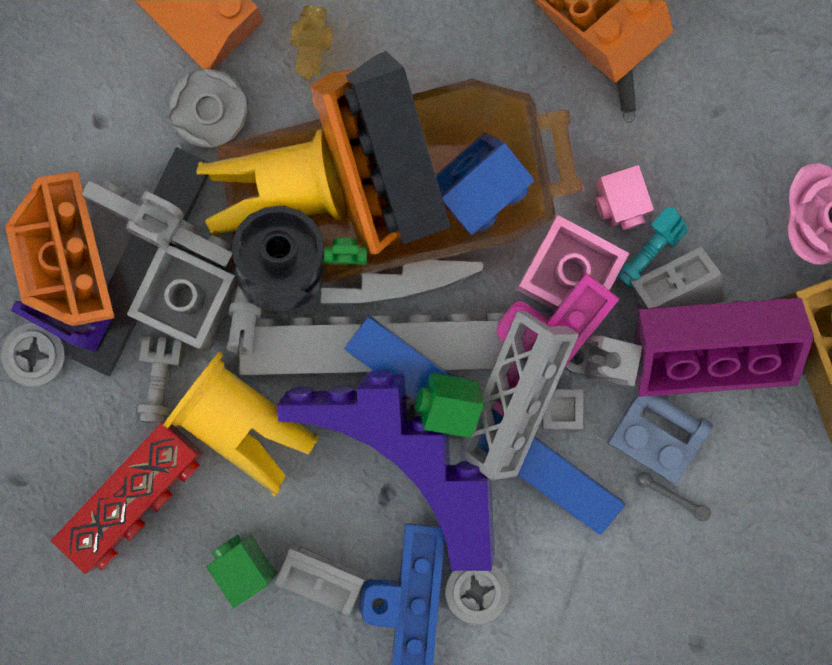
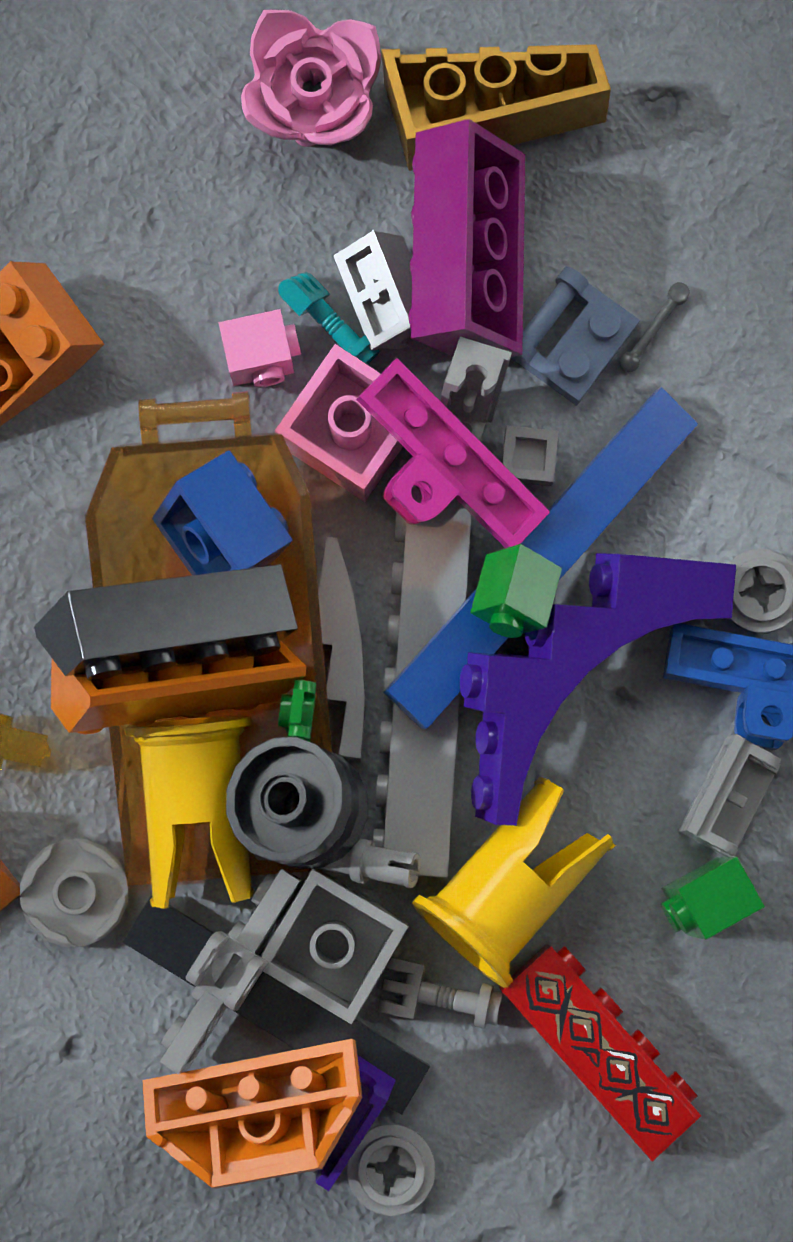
camera: 85 degrees left, 5 degrees down
(526, 402) = (516, 486): light grey fence -> none
(627, 94) = (120, 331): dark grey piece -> none

